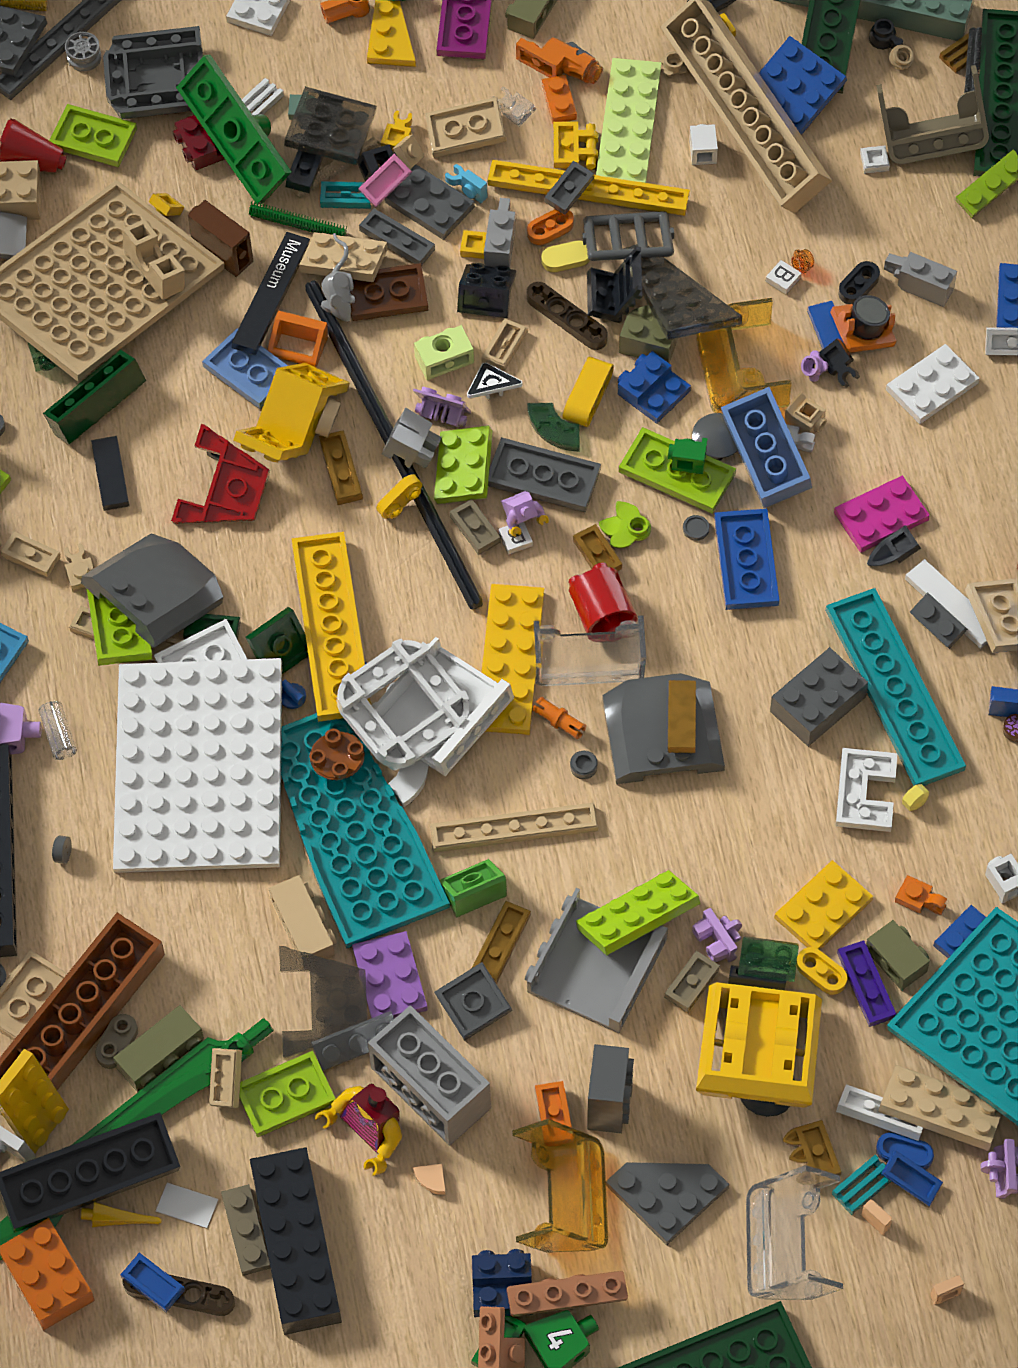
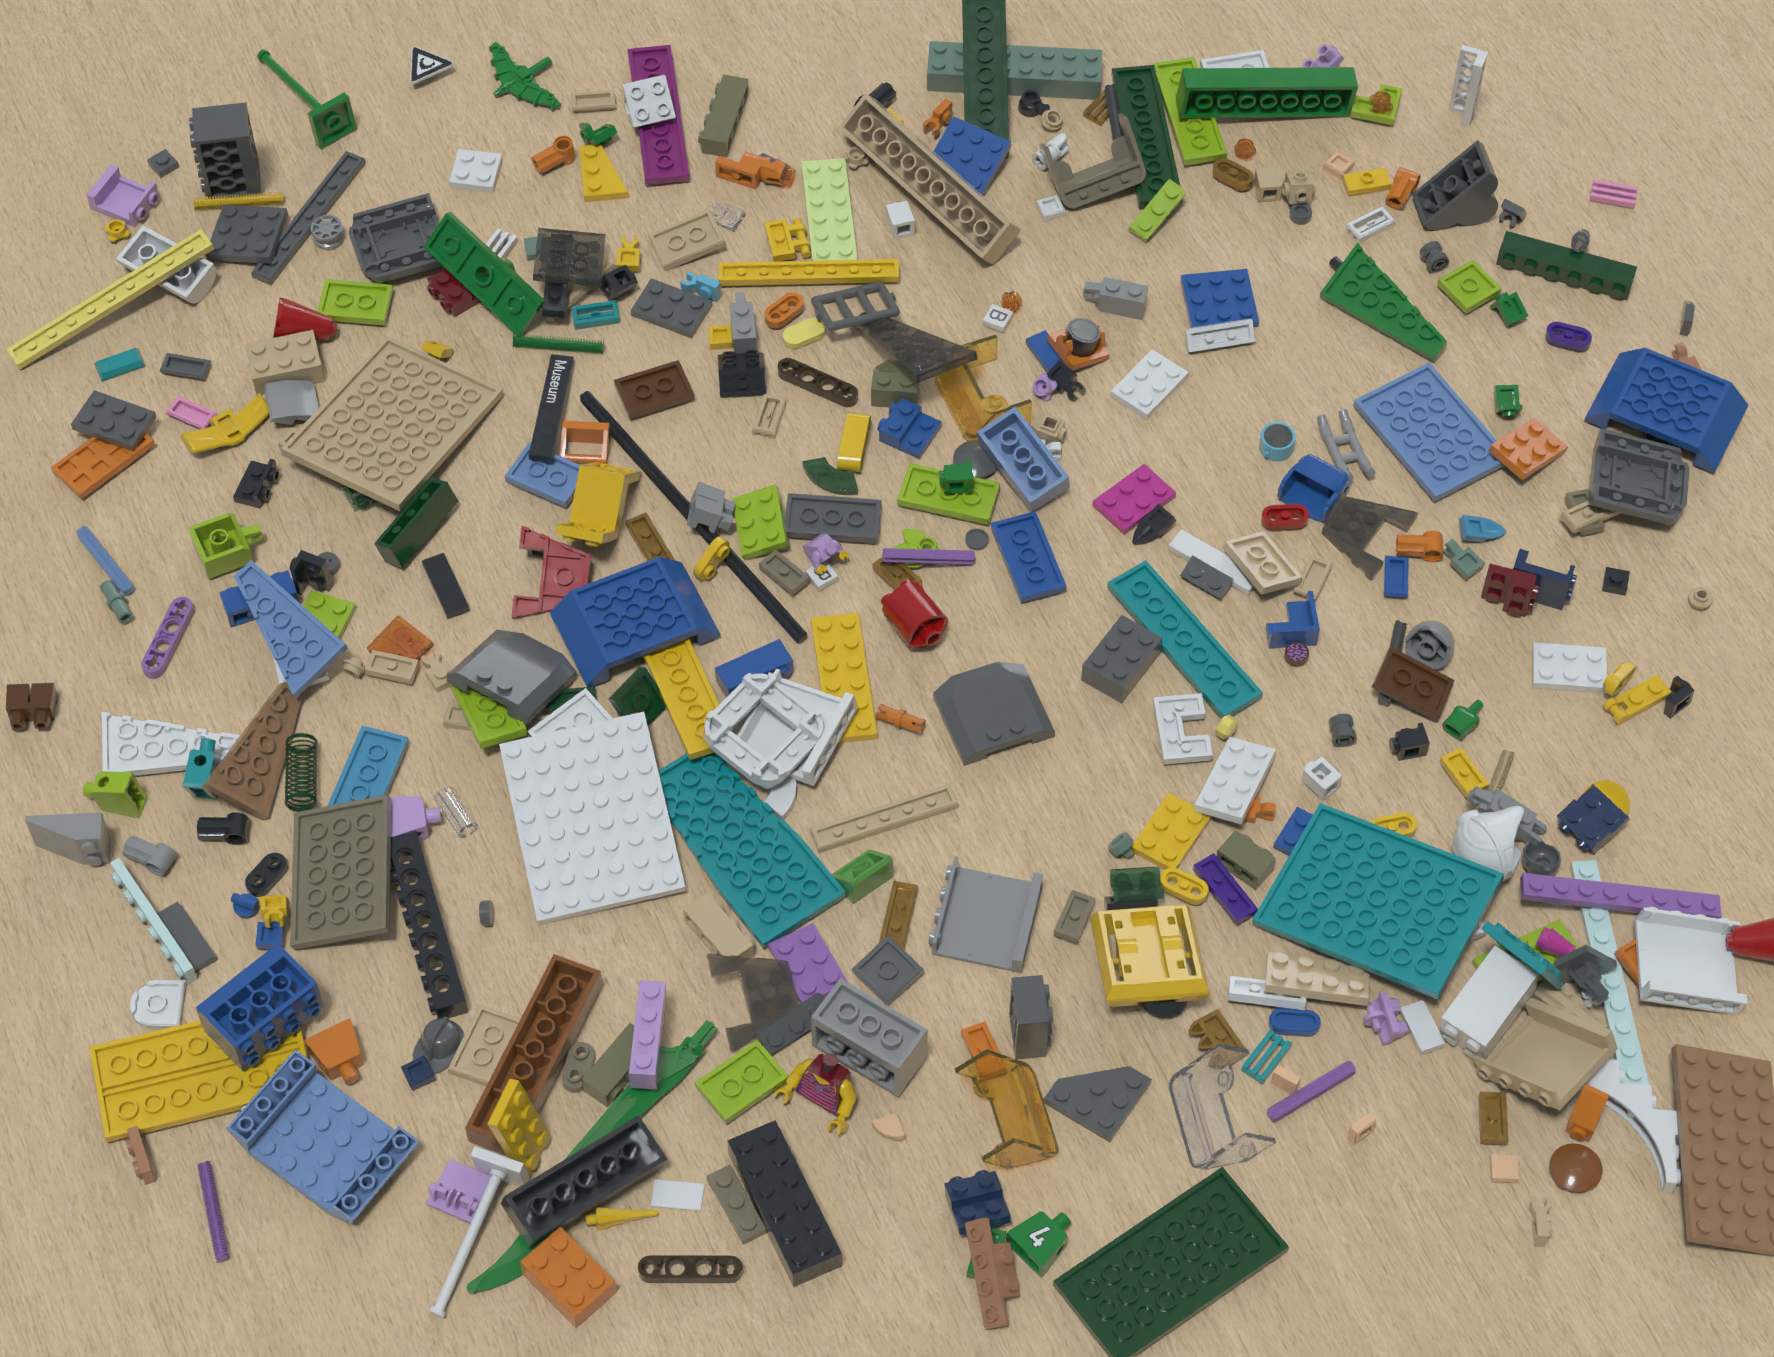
camera: 15 degrees left, 5 degrees down
(47, 526) = (402, 640): none -> clear orange wing
(152, 1282) = (666, 1264): blue tile -> none
(161, 271) = (453, 405): tan arch -> none
(193, 1024) = (647, 1035): none -> lavender brick
(221, 237) = (496, 366): reddish brown brick -> none
(225, 1078) = (686, 1077): tan plate -> none
(292, 695) = (660, 742): blue plate -> none
(298, 546) = (631, 616): none -> blue slope
(325, 253) = (608, 366): tan plate -> none
(328, 418) = (631, 504): tan beam -> none
(337, 289) = (611, 392): light grey animal -> none
(337, 755) = (714, 785): dark orange dish -> none
(385, 180) = (629, 295): bright pink tile -> none
(398, 237) = (650, 342): dark grey plate -> none
(409, 151) = (643, 268): tan plate -> none
(416, 626) = (758, 661): none -> blue brick
(432, 400) = (738, 470): lavender hinge -> none
(436, 363) = (718, 431): yellowish green brick -> none
(490, 381) = (767, 447): piece -> none
(559, 99) = (763, 203): orange plate -> none
(567, 1293) = (1037, 1196): nougat bracket -> none
(569, 187) = (793, 274): dark grey plate -> none
(583, 764) = (931, 754): dark grey tile -> none
(589, 656) = (917, 660): clear windscreen -> none
(613, 293) = (855, 356): black plate -> none
(636, 538) = (928, 556): none -> medium lavender axle
(637, 912) = (1013, 867): lime plate -> none
(681, 716) = (1009, 696): pearl gold tile -> none
(721, 933) = (1090, 870): lavender hips -> none
(764, 910) = (1121, 845): none -> sand green tile
(778, 32) = (941, 115): none -> orange plate
(857, 284) = (1061, 313): black plate -> none
(893, 93) = (1057, 150): none -> white hinge
(902, 1234) = (1311, 1091): none -> medium lavender axle
(909, 861) = (1235, 780): none -> white plate
(911, 1178) = (1307, 1042): blue tile -> none

